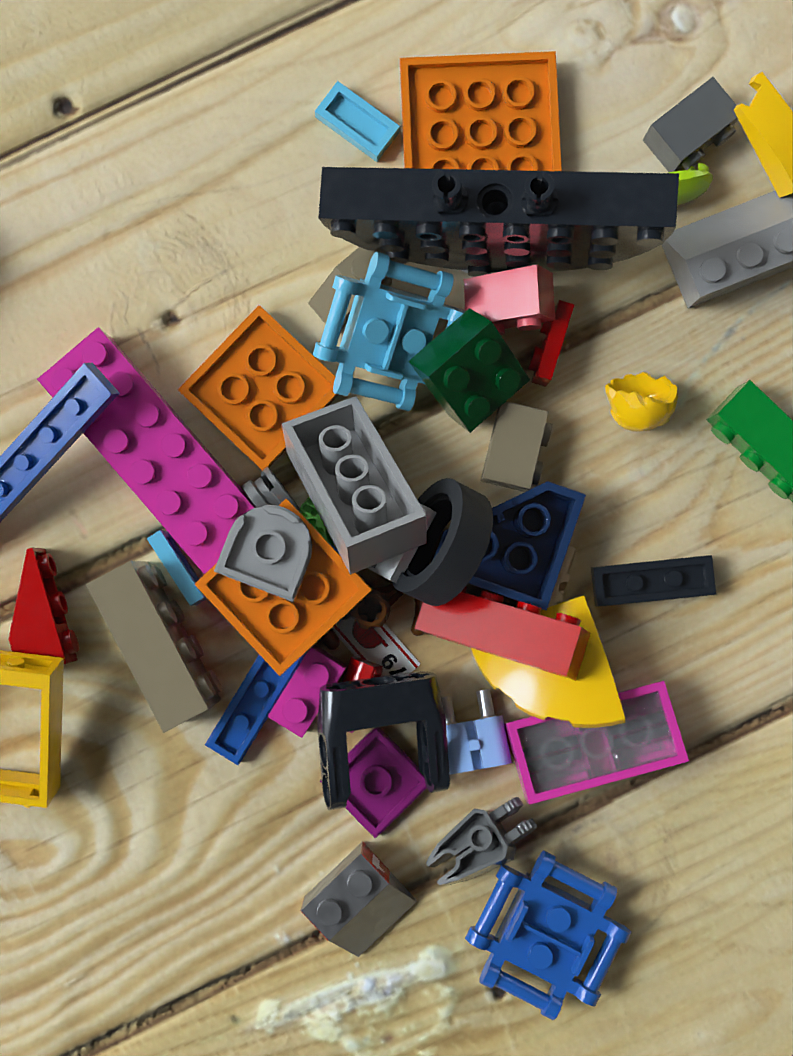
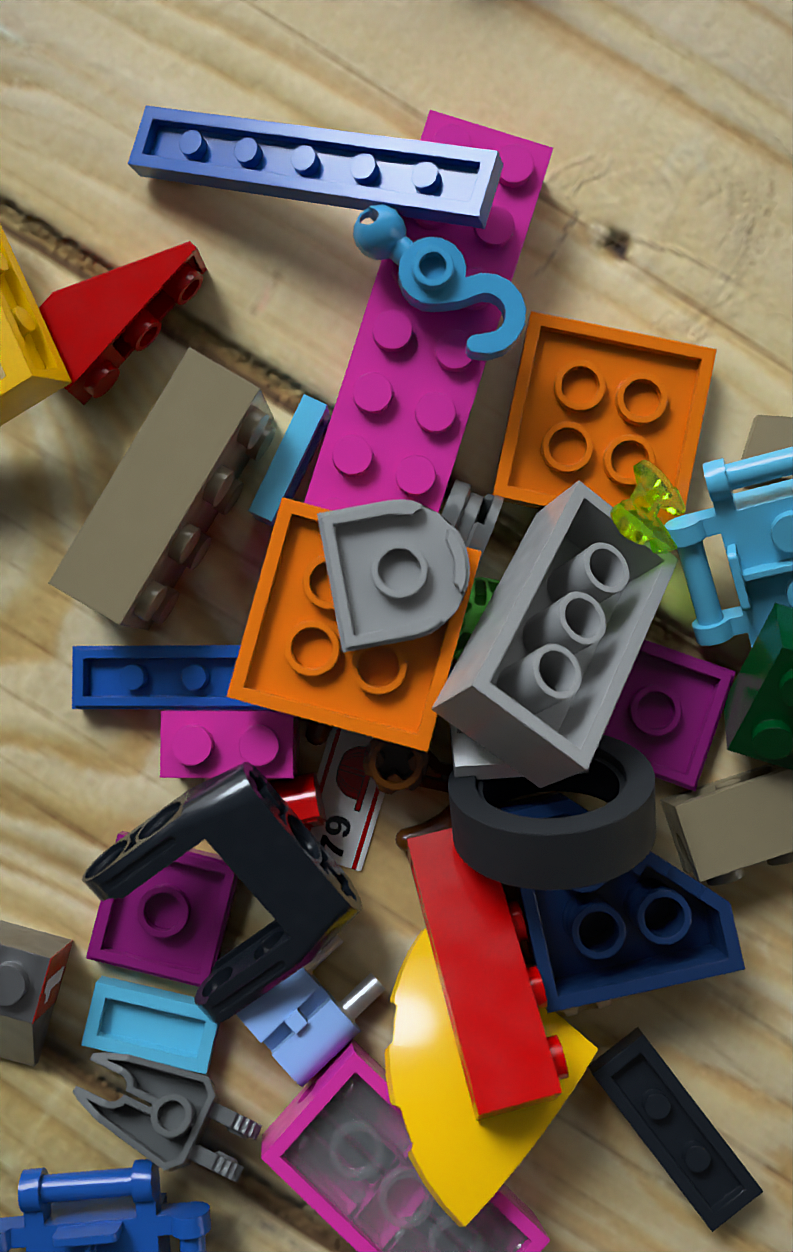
camera: 55 degrees right, 0 degrees up
(128, 433) = (435, 280): none -> dark azure piece
(319, 404) = (637, 516): none -> clear neon green piece
(431, 824) = (149, 1025): none -> medium azure tile
(432, 450) = (671, 711): none -> magenta tile

